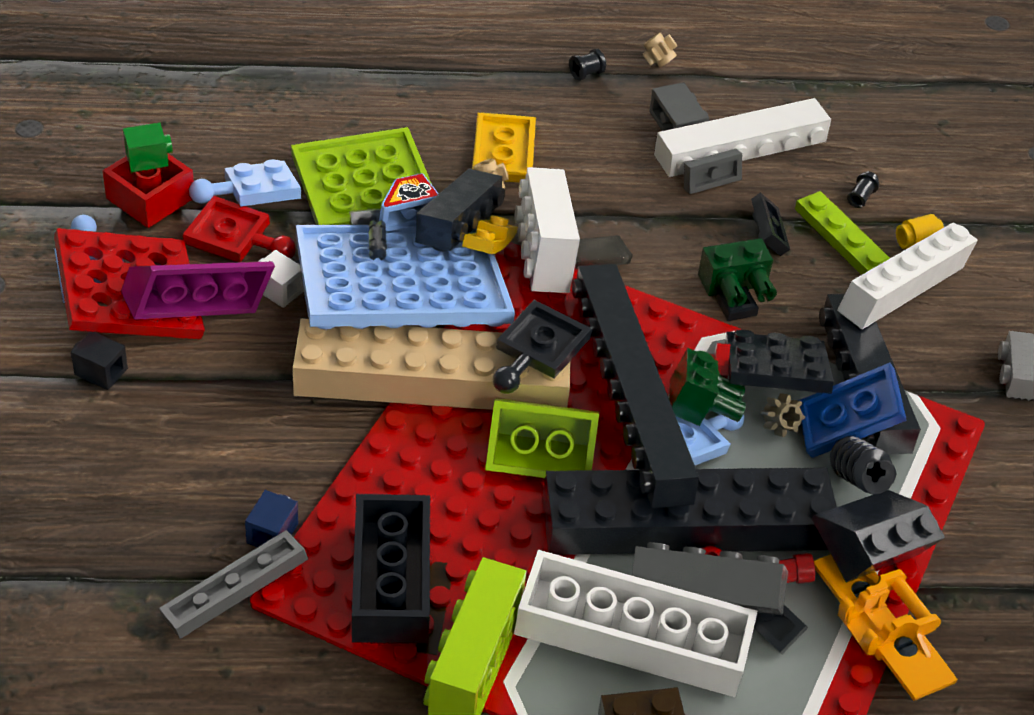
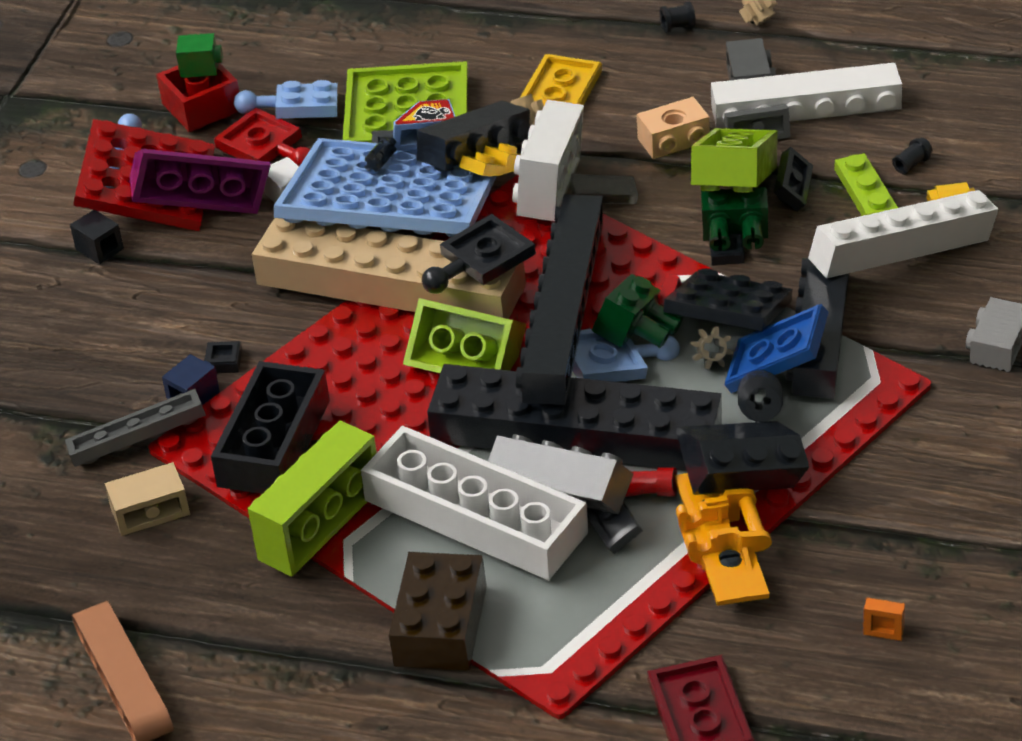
camera: 25 degrees right, 5 degrees down
(279, 667) = (147, 499): none -> tan brick
(289, 481) = (224, 356): none -> black tile
(635, 181) = (672, 127): none -> light nougat brick
(726, 212) = (733, 159): none -> lime brick

